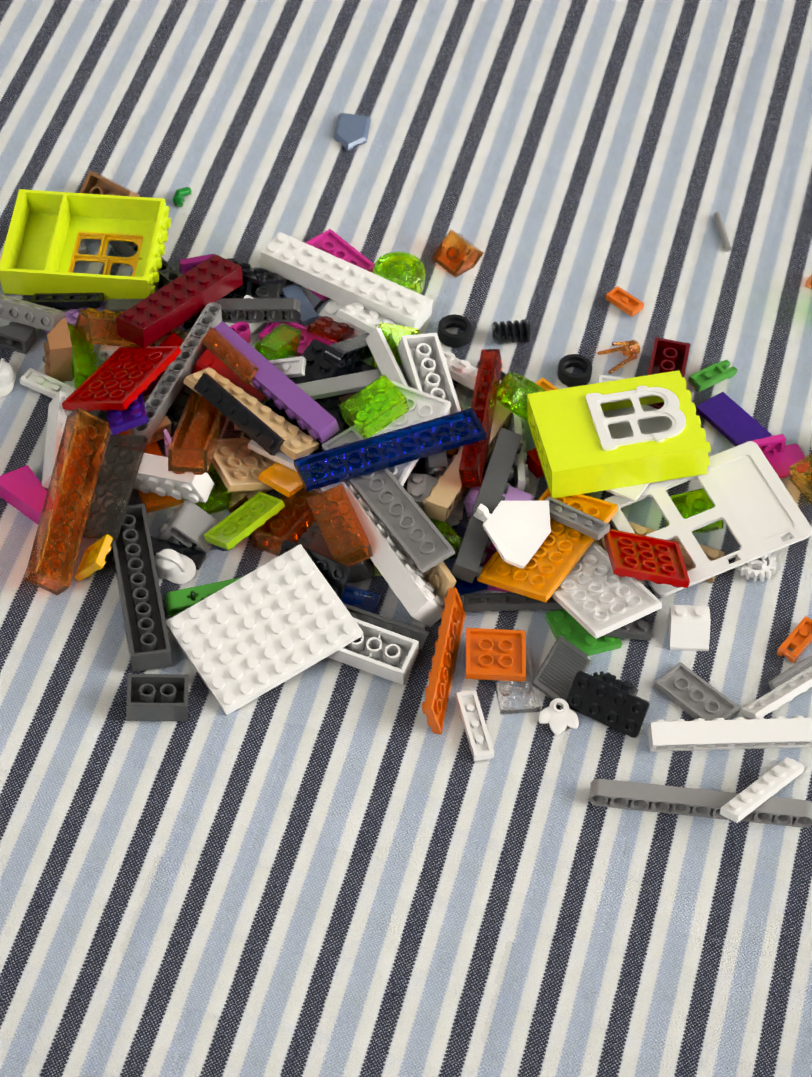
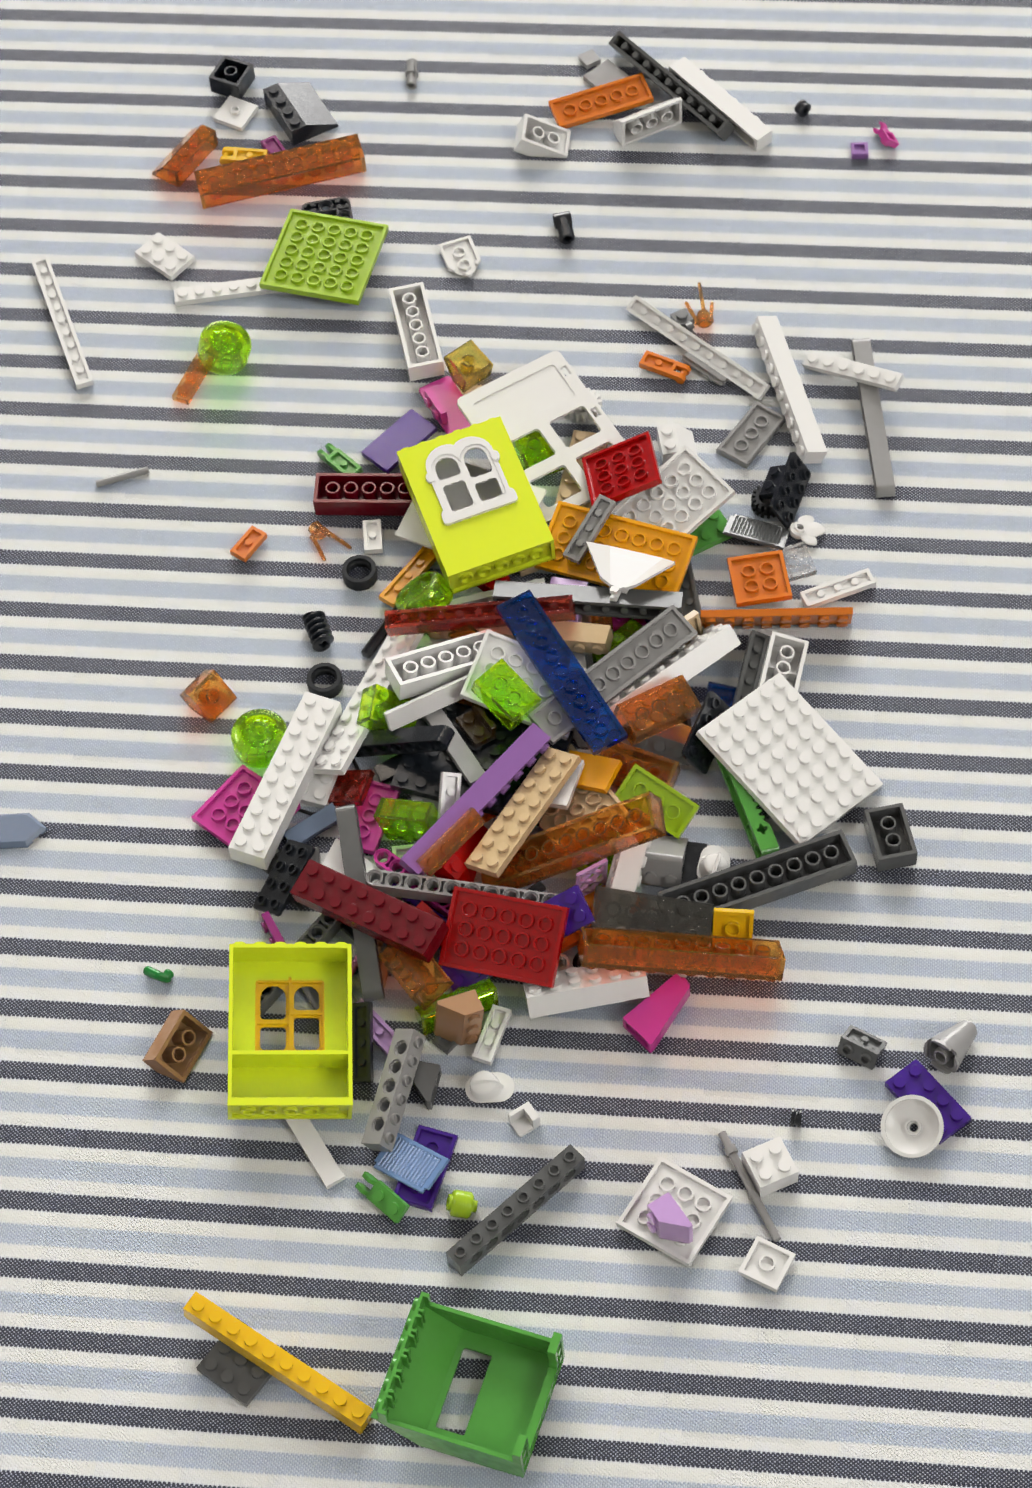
camera: 90 degrees left, 10 degrees up
(239, 414) = (538, 814): black plate -> none

